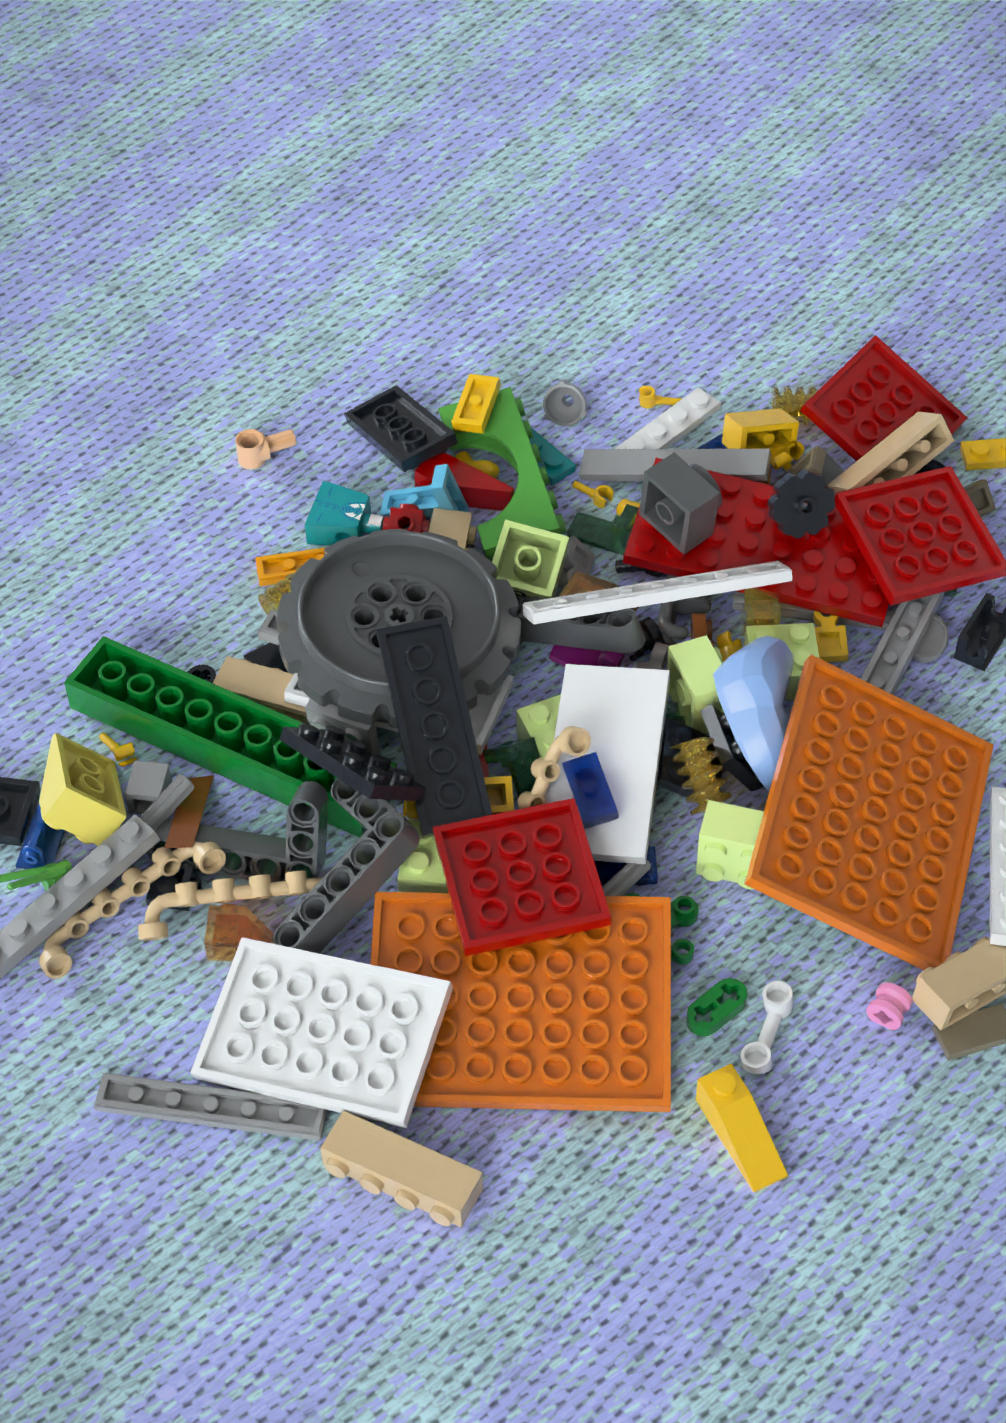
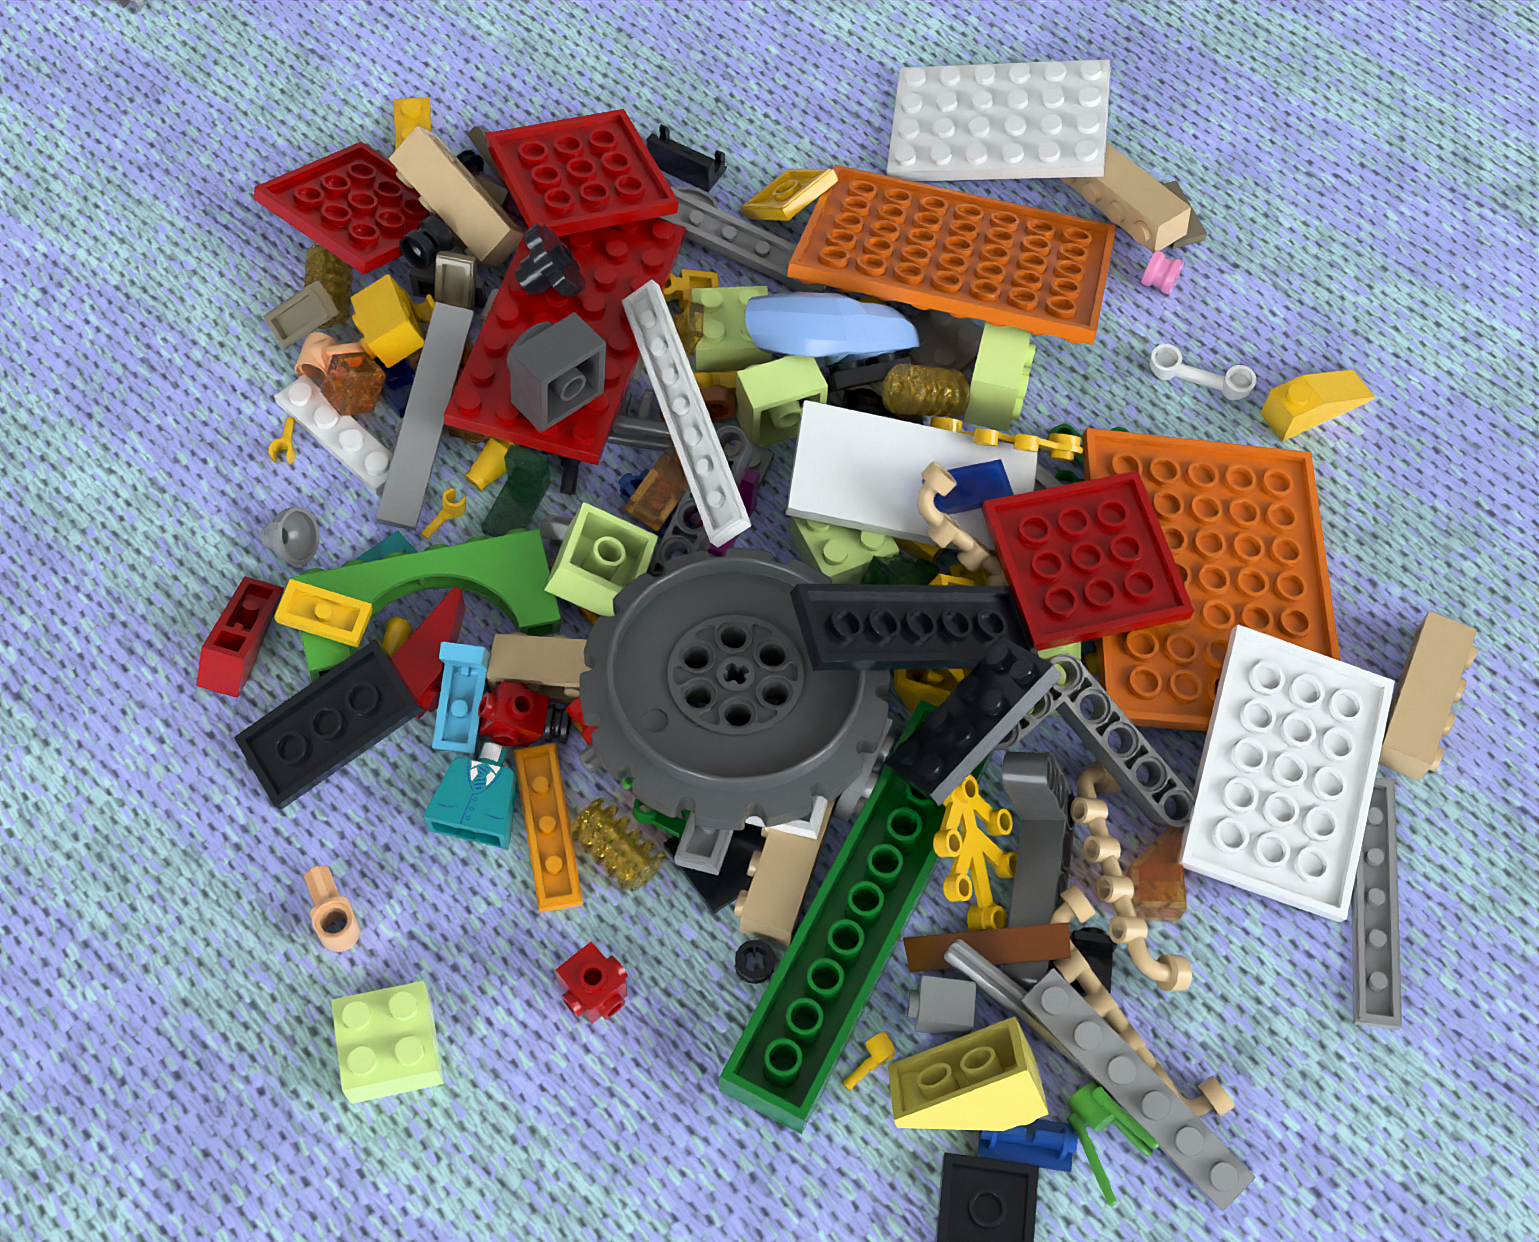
camera: 95 degrees left, 10 degrees up
(162, 478) = (386, 1042): none -> yellowish green brick
(190, 580) = (592, 984): none -> red brick
(267, 790) = (971, 850): none -> yellow plant
(457, 366) = (237, 637): none -> red slope
(656, 878) = (1060, 446): none -> yellow plant
(699, 419) = (353, 383): none -> clear orange brick
(711, 1001) = (1177, 415): green beam -> none
(734, 403) = (317, 354): none -> light nougat axle
(766, 385) = (301, 314): none -> dark tan tile
(840, 446) = (425, 242): none -> black wheel
(943, 702) = (789, 194): none -> yellow tile

